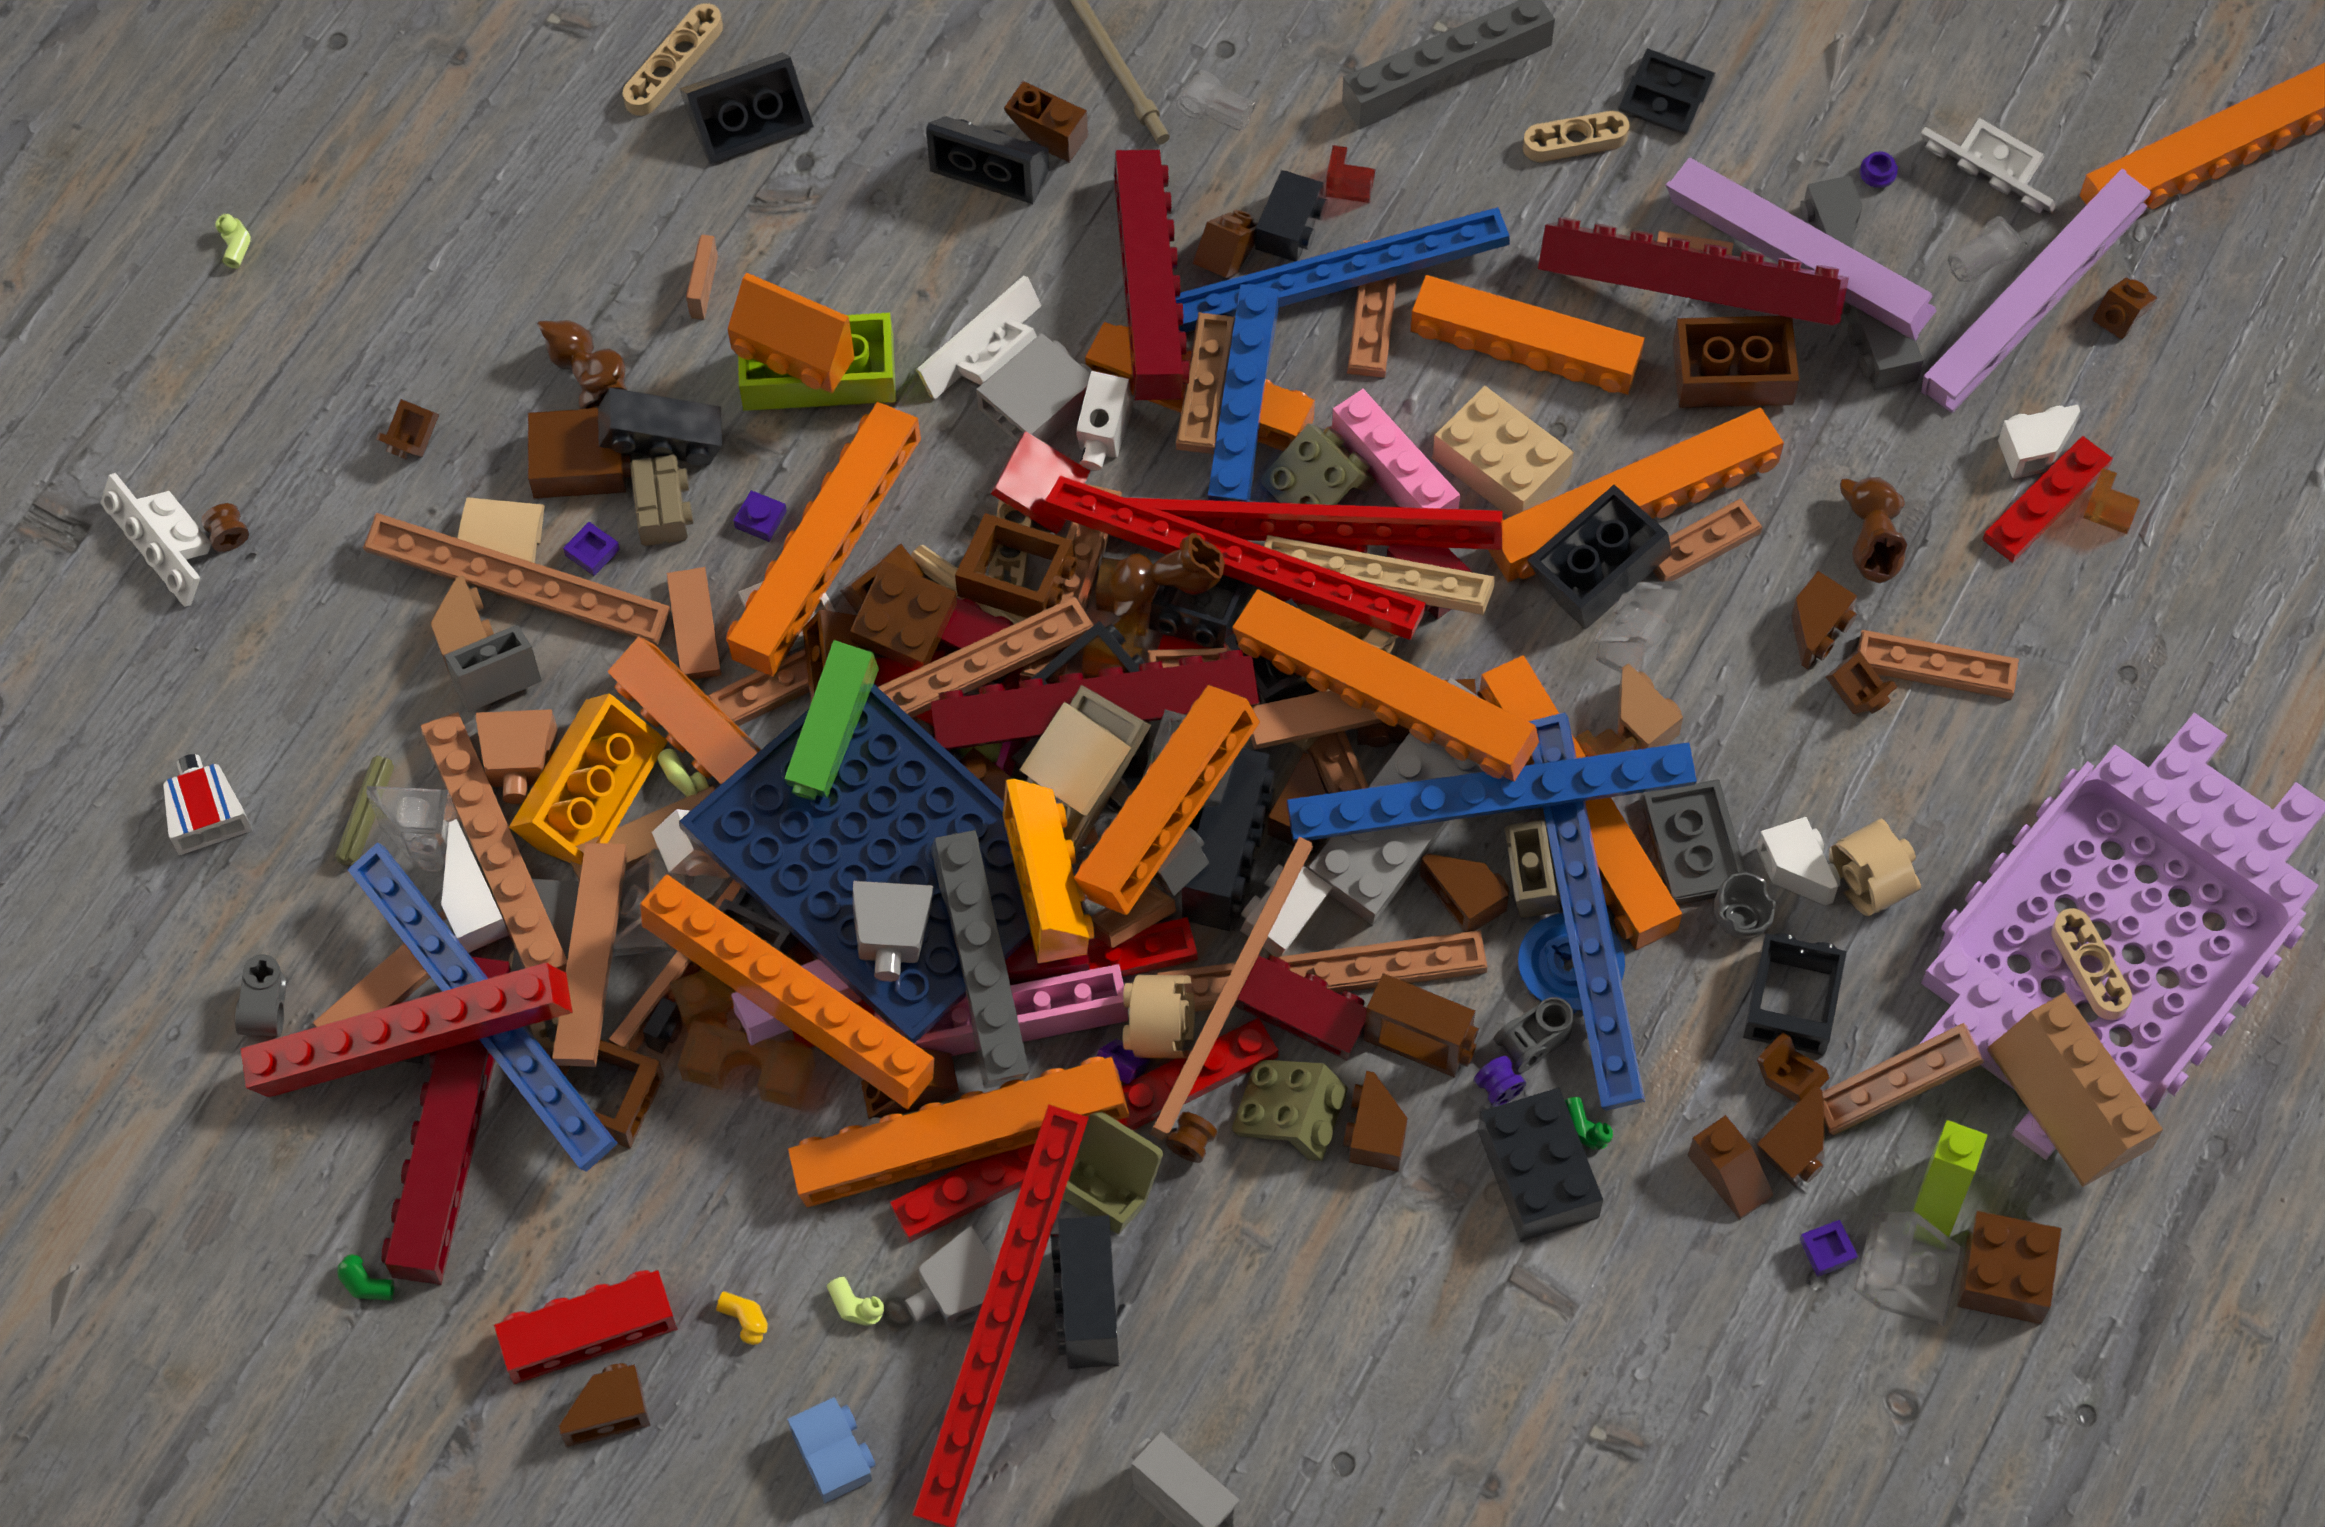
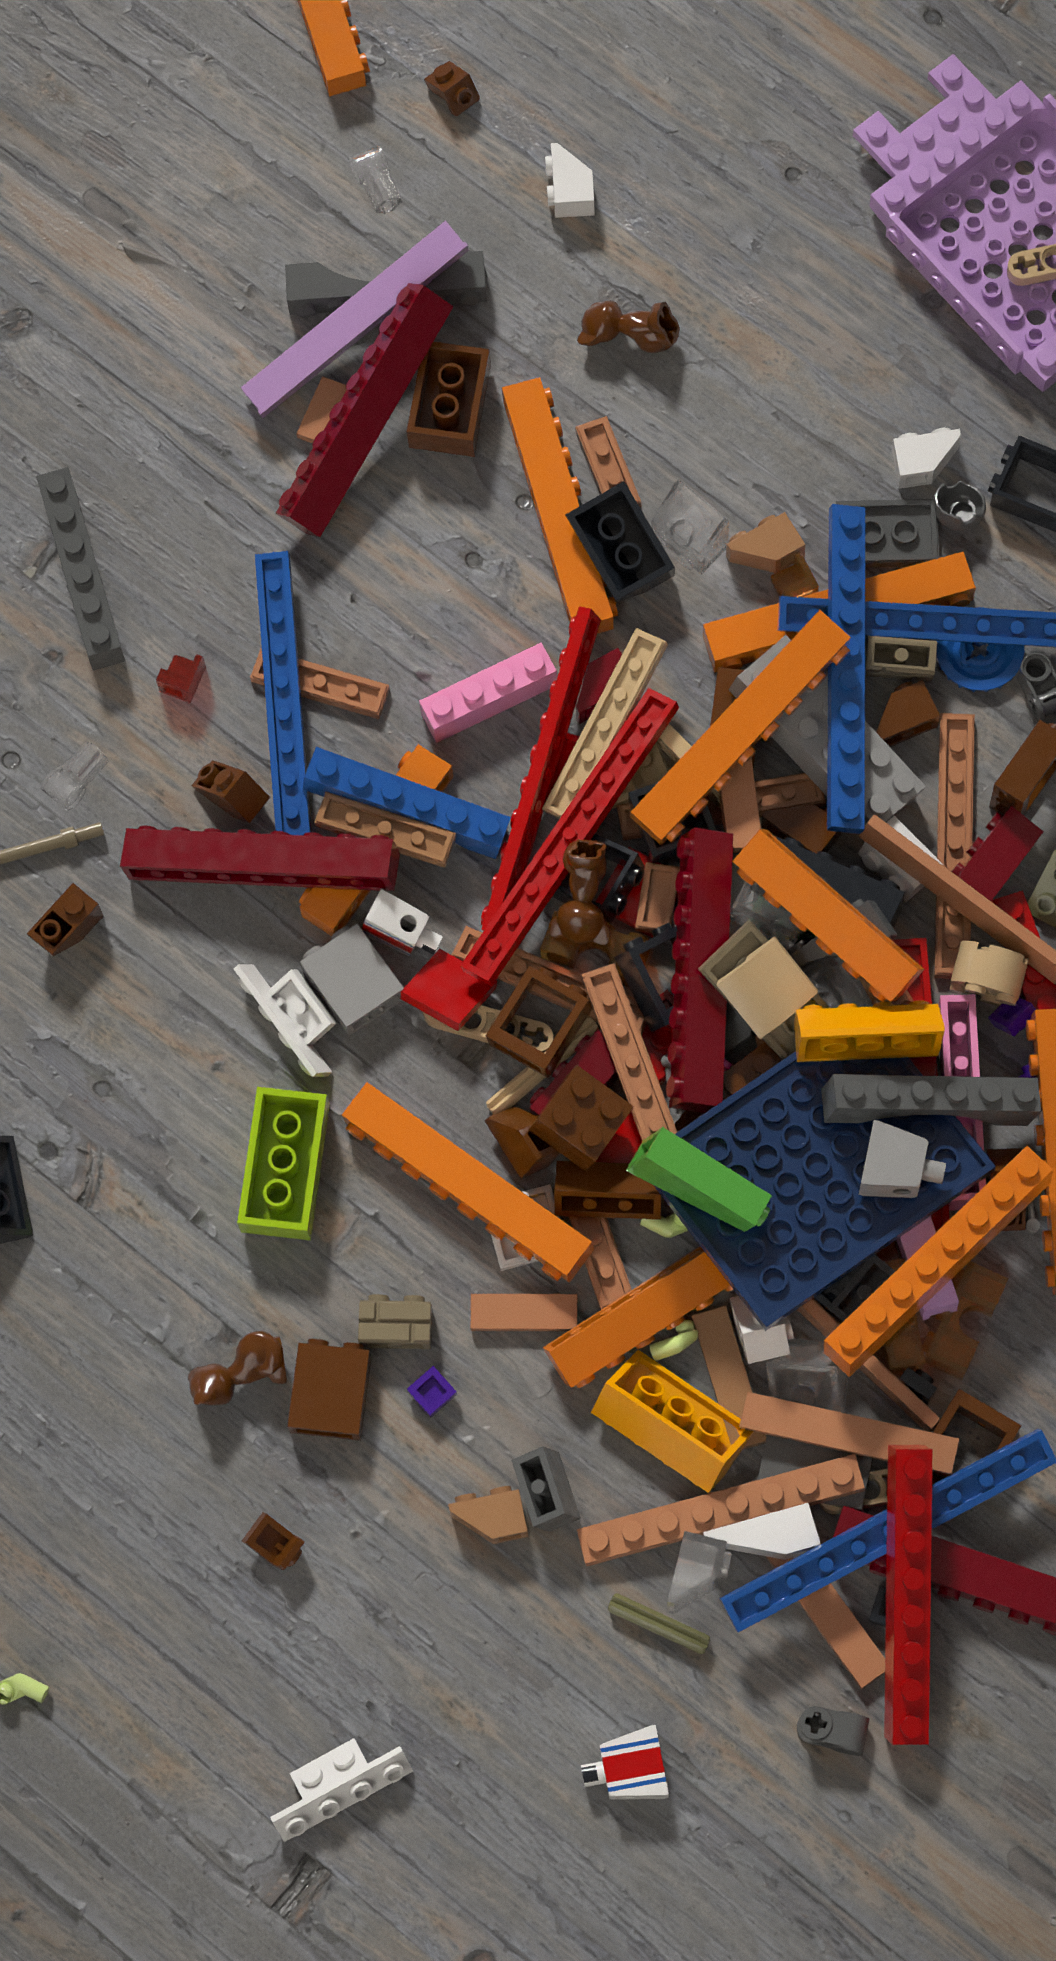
camera: 75 degrees left, 10 degrees up
(225, 527) = (343, 1722): reddish brown wheel -> none
(503, 526) = (403, 1473): tan slope -> none
(516, 748) = (628, 1481): nougat torso -> none
(517, 578) = (451, 1462): nougat tile -> none
(659, 426) = (330, 1309): black brick -> none
(702, 277) = (164, 1255): nougat tile -> none
(760, 516) = (424, 1240): dark purple plate -> none
(790, 334) = (280, 1170): orange slope -> none
(987, 158) = (93, 980): black slope -> none
(1290, 216) = (213, 732): black brick -> none
(1316, 469) = (485, 759): olive bracket -> none
(1502, 454) = (498, 604): tan brick -> none
(1526, 335) = (380, 562): orange brick -> none
(1584, 124) = (171, 503): tan beam -> none
(1667, 91) = (151, 396): black slope -> none
(1819, 615) = (703, 391): reddish brown slope -> none
(1860, 685) = (774, 373): reddish brown bracket -> none
(1875, 867) = (948, 397): tan brick -> none
(1878, 169) = (272, 245): dark purple plate -> none
(1939, 664) = (759, 313): nougat tile -> none
(1998, 157) = (284, 147): white bracket -> none
(2035, 291) = (434, 147): lavender tile -> none
(2047, 499) = (623, 193): red plate -> none
(2110, 506) = (639, 145): clear orange panel -> none

